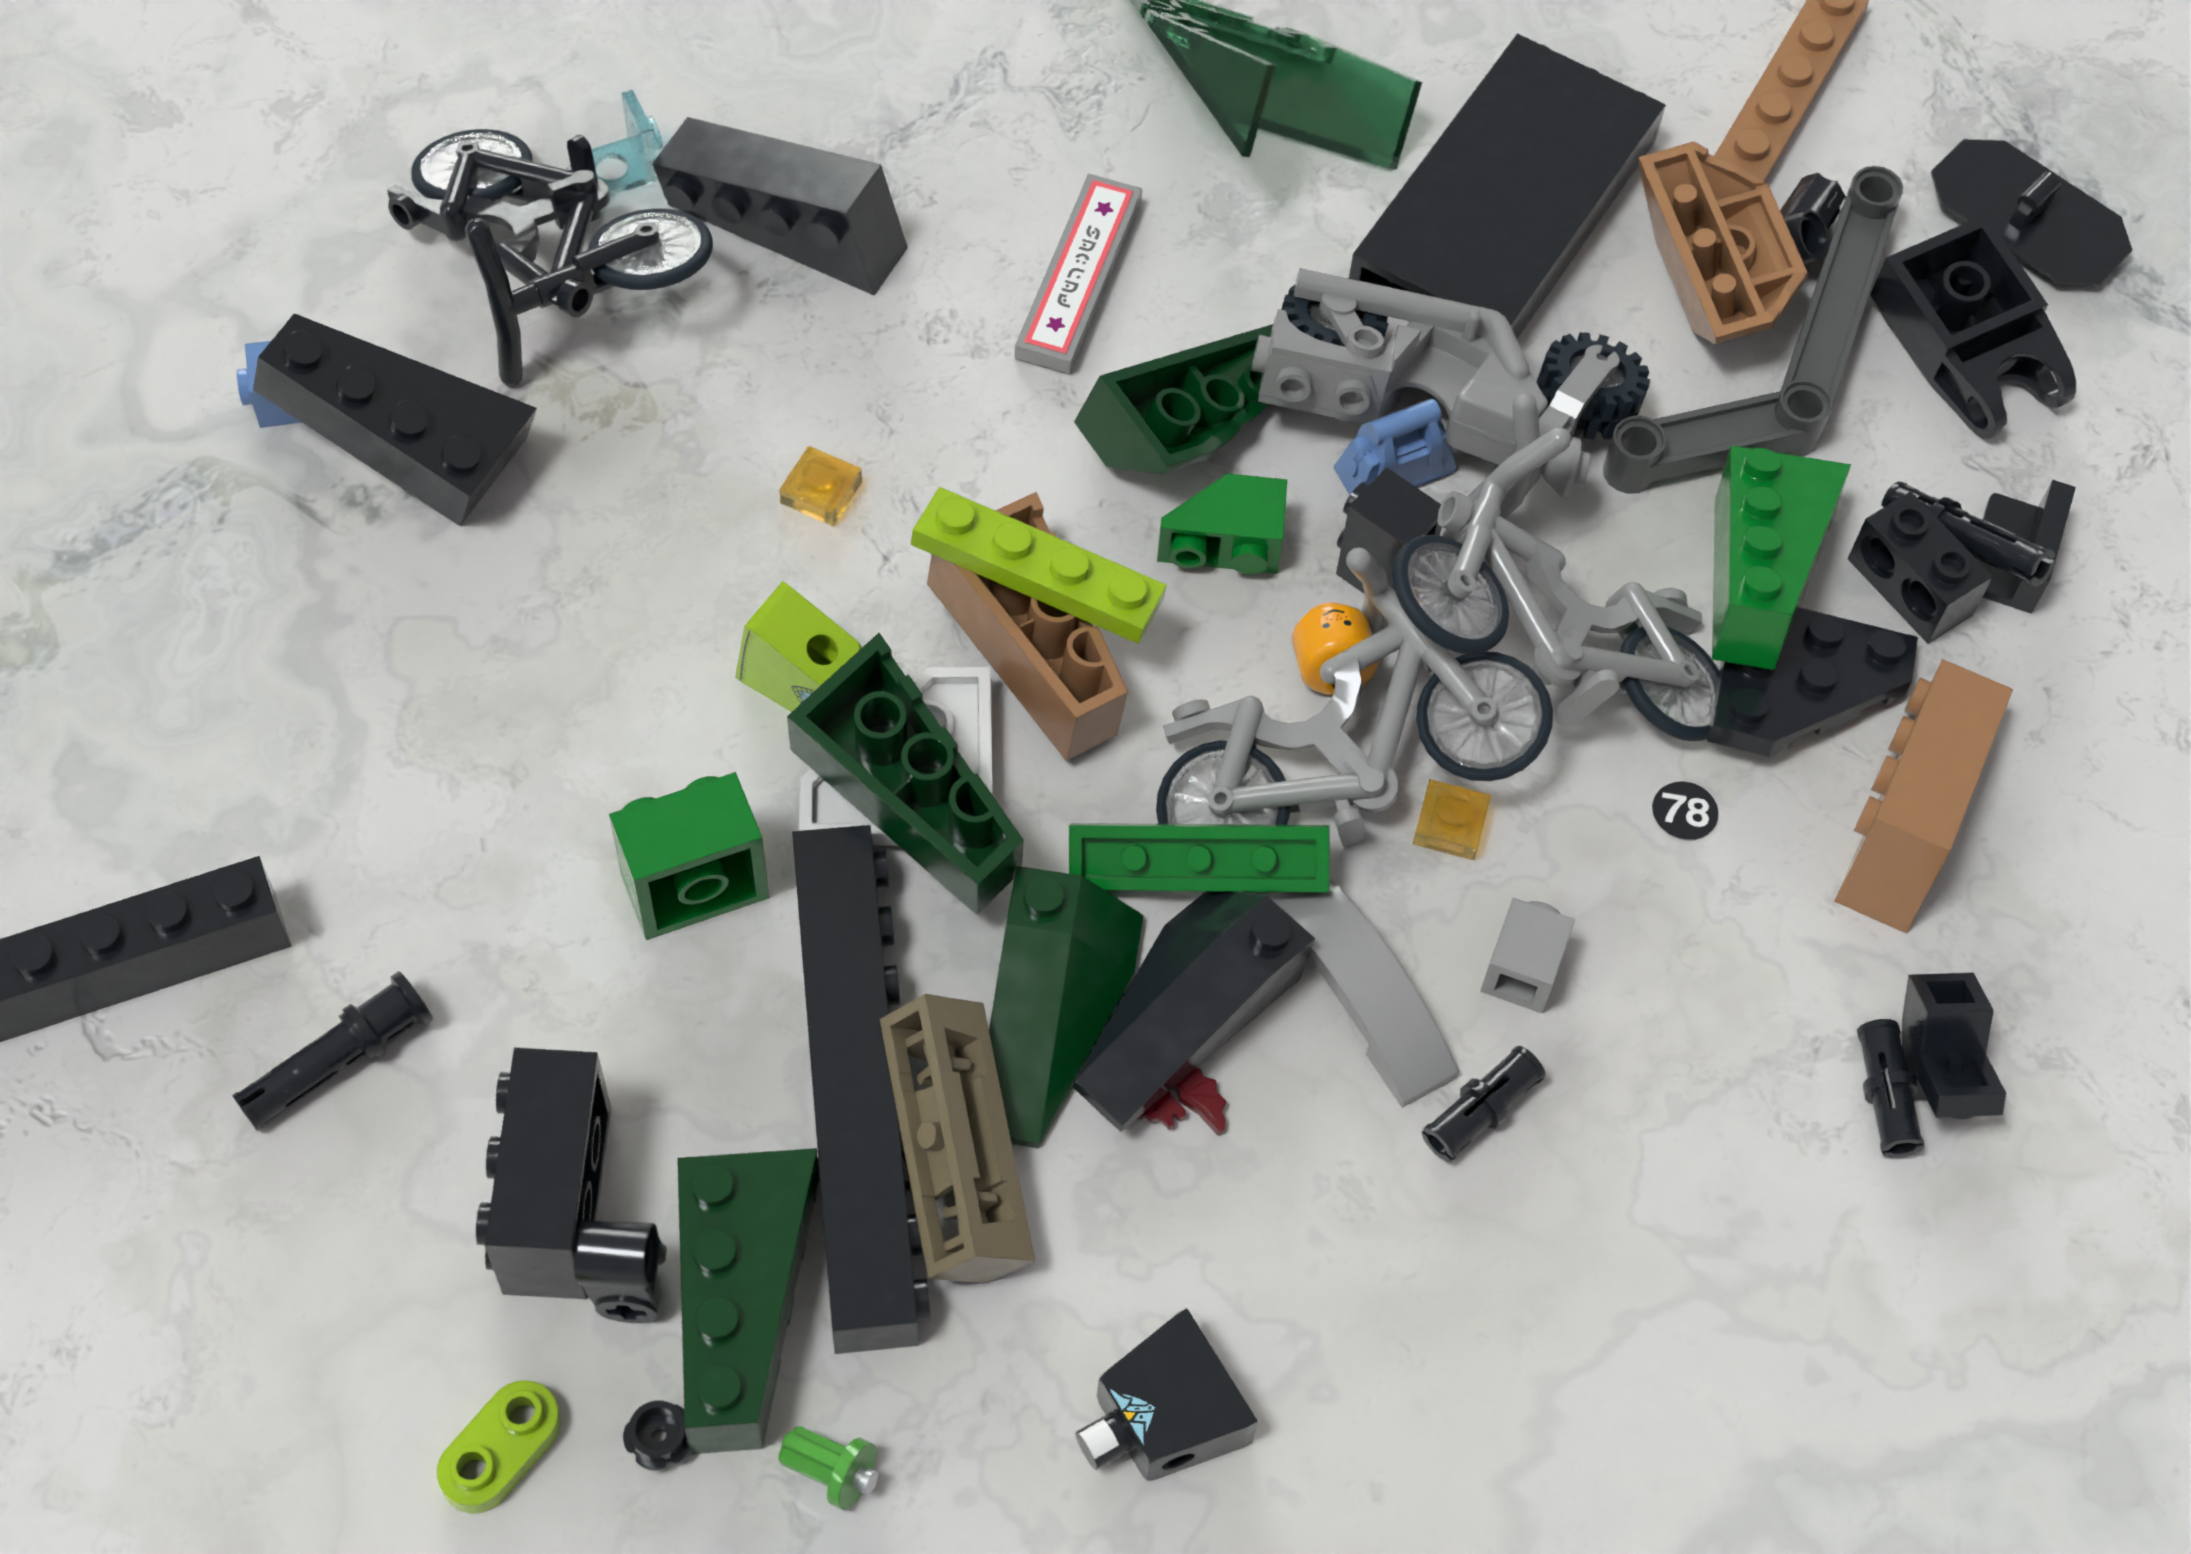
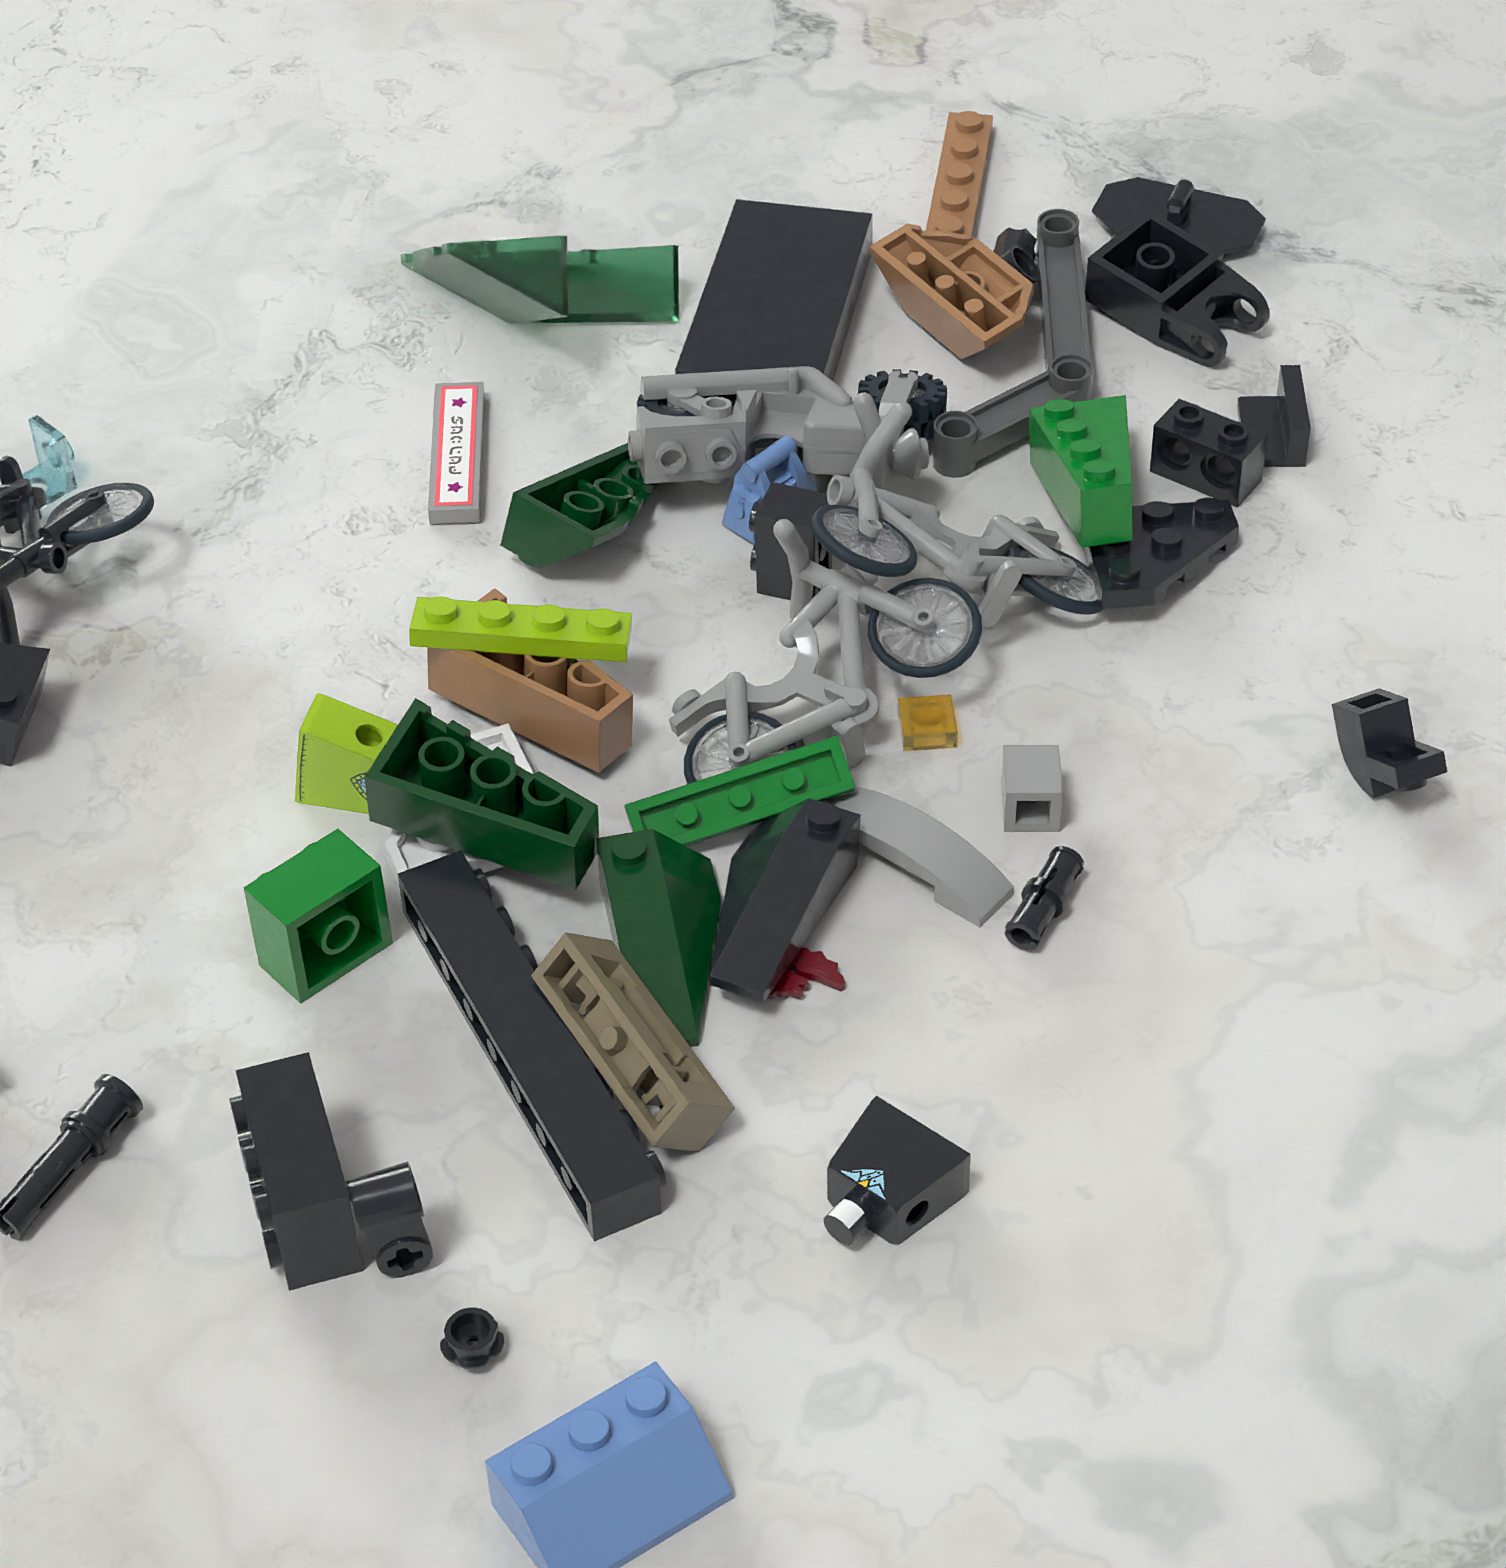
camera: 15 degrees left, 15 degrees down
(502, 1445) = (339, 1389): lime plate -> none
(739, 1271) = (489, 1200): dark green wedge -> none
(786, 198) = (200, 459): black wedge -> none
(820, 485) = (308, 650): clear yellow plate -> none
(842, 1469) = (637, 1310): bright green piece -> none
(1228, 526) = (660, 576): green slope -> none
(1325, 633) = (763, 629): light orange head -> none
(1685, 810) = (1106, 666): black sticker -> none
(1897, 1125) = (1370, 810): black pin -> none
(1922, 793) = (1283, 595): medium nougat wedge -> none
(1984, 539) = (1261, 415): black pin -> none

